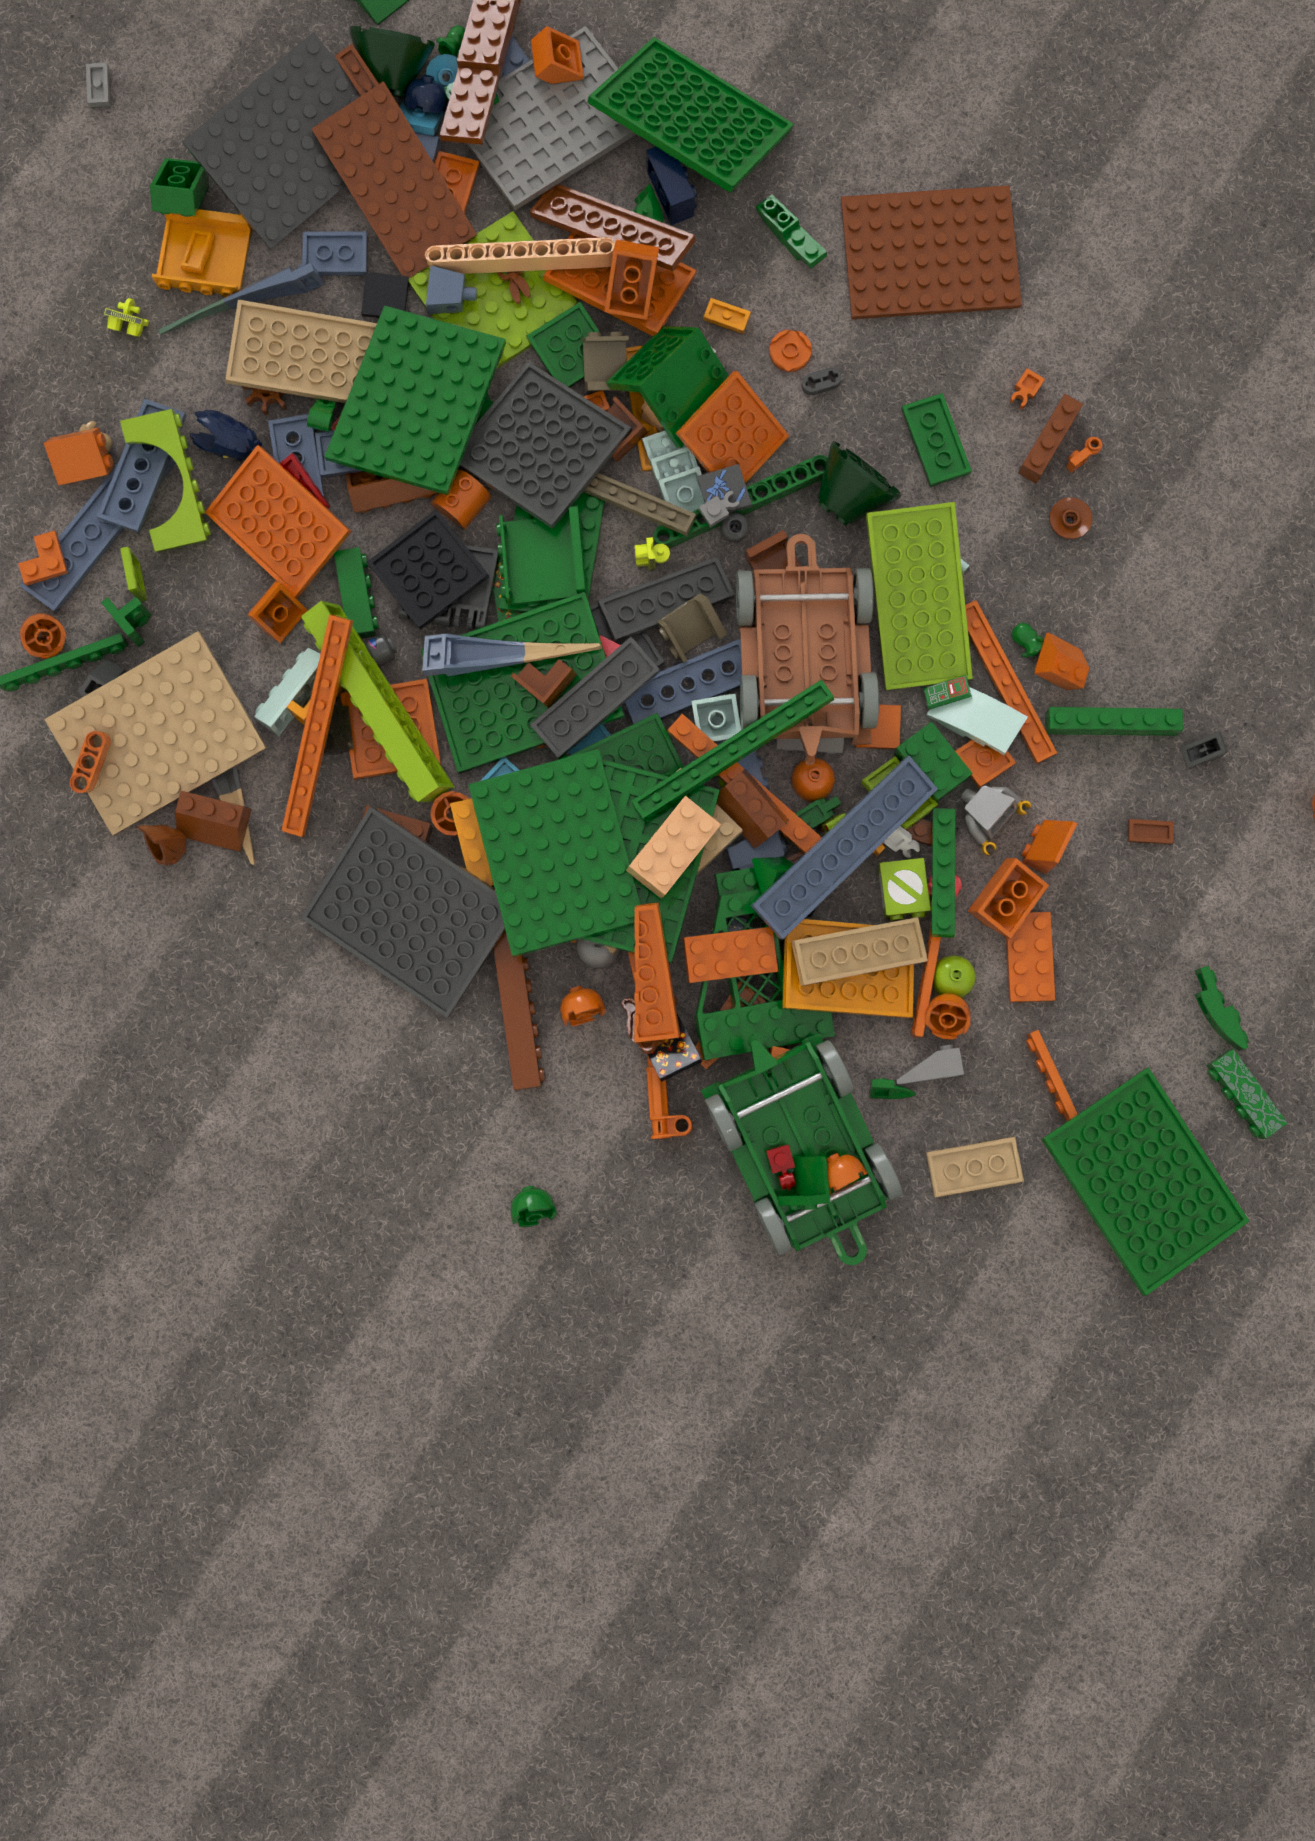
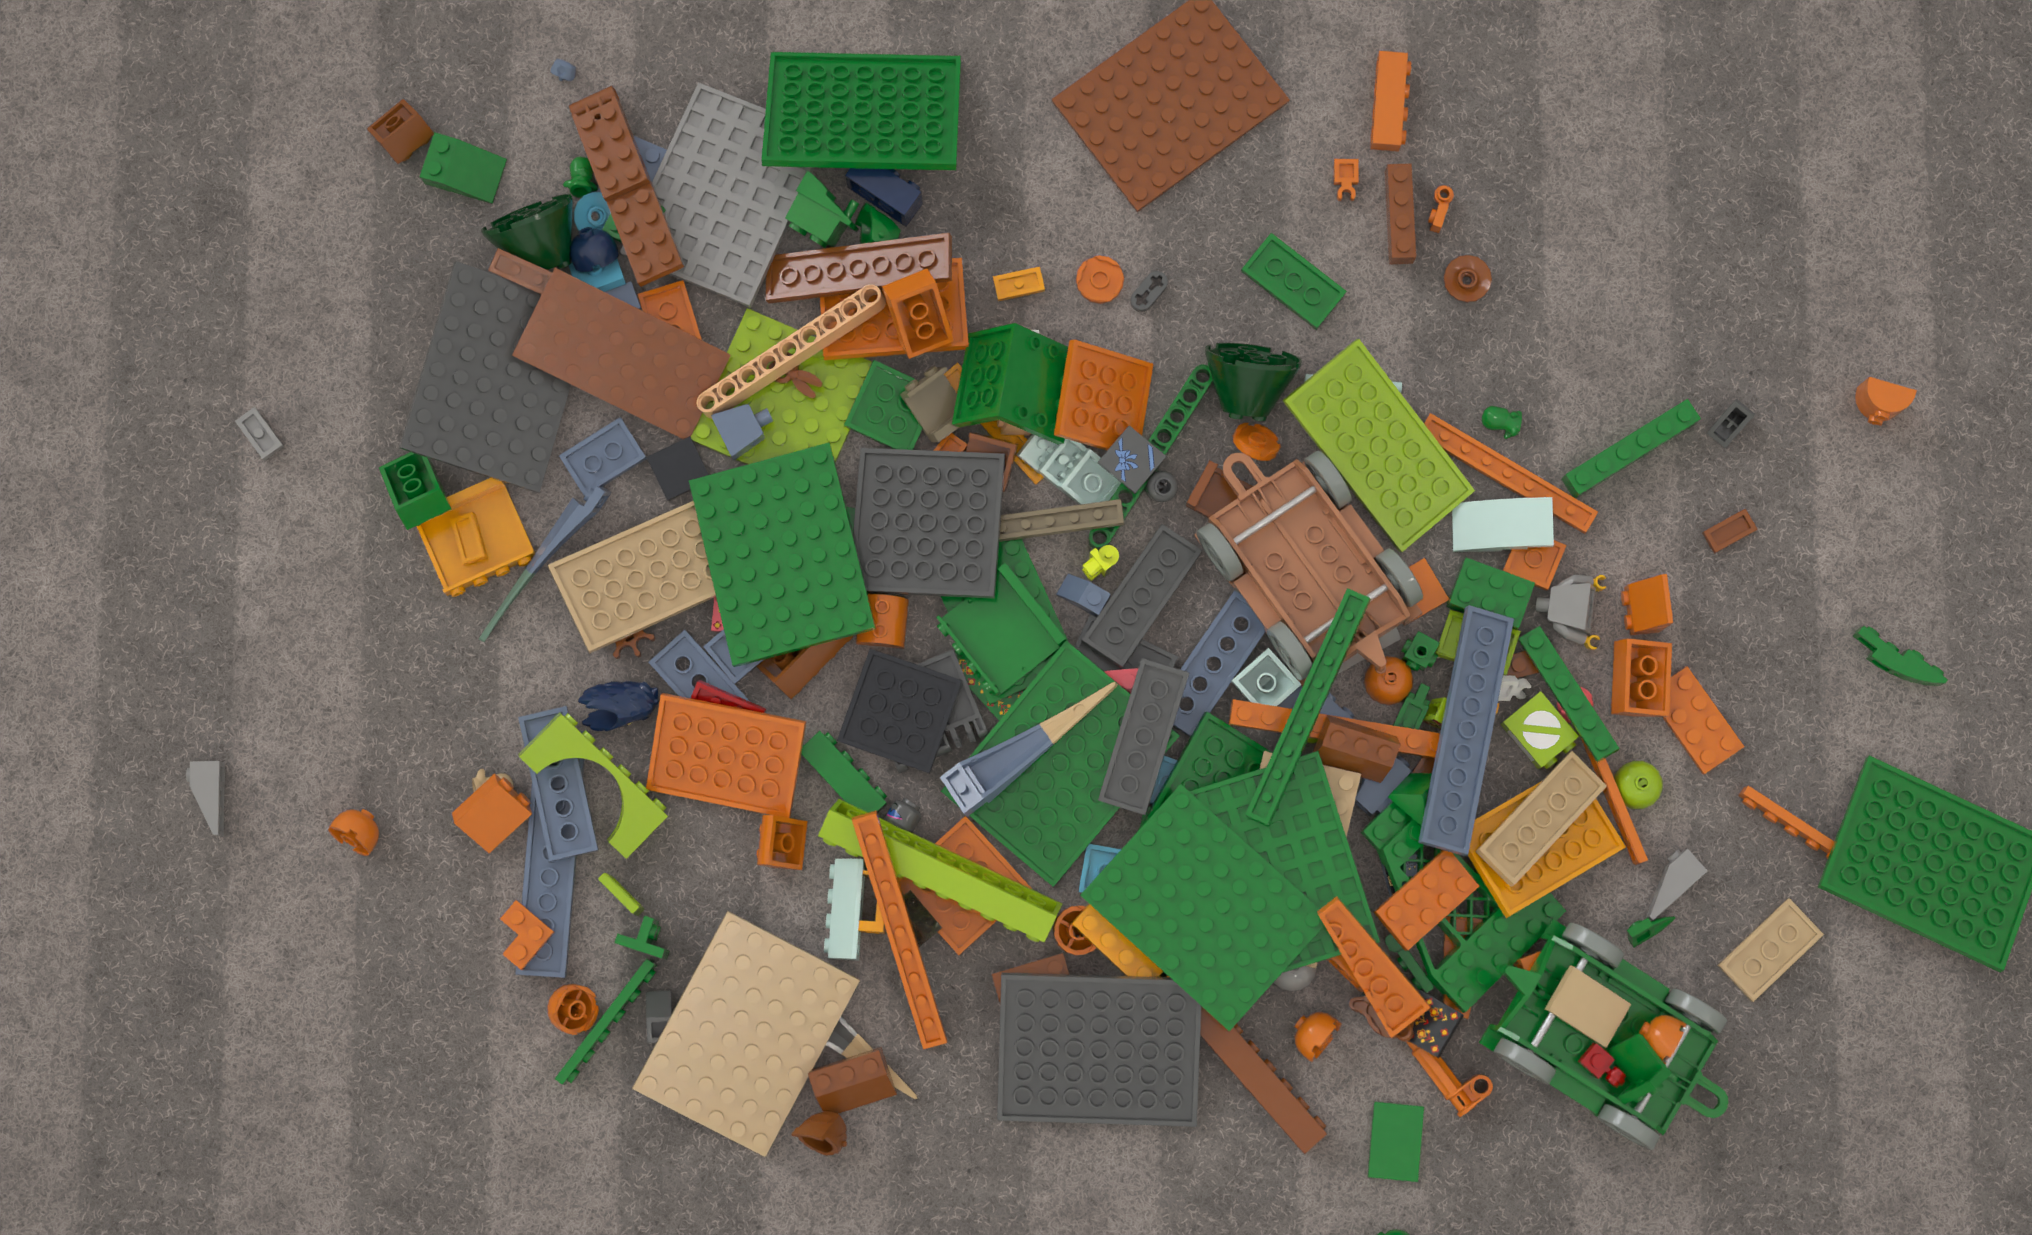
camera: 30 degrees left, 0 degrees up
(81, 768) = (709, 1113): orange beam -> none
(116, 318) = (433, 652): neon yellow hips -> none
(321, 415) = (700, 625): green piece -> none
(546, 687) = (1089, 755): dark orange panel -> none
(556, 57) = (694, 133): orange slope -> none
(590, 1126) = (1395, 1141): none -> green tile
(609, 169) = (818, 214): none -> green piece
(623, 571) = (1083, 594): none -> sand blue slope
(673, 847) = (1314, 834): light nougat brick -> none
(688, 997) = (1407, 961): none -> green hinge
(690, 626) = (1181, 607): dark tan panel -> none
(716, 509) = (1138, 483): light grey plate -> none
(790, 233) = (1026, 165): green slope -> none
(799, 1112) = (1588, 1006): none -> tan tile
(828, 539) = (1256, 441): none -> orange tile
(855, 766) = (1420, 643): none -> green brick
(947, 692) = (1460, 518): green tile -> none
(948, 1016) = (1658, 825): orange cylinder -> none
(1062, 664) = (1549, 423): orange slope -> none
(1097, 350) = (1389, 101): none -> orange brick
(1246, 1094) = (1973, 723): green brick -> none

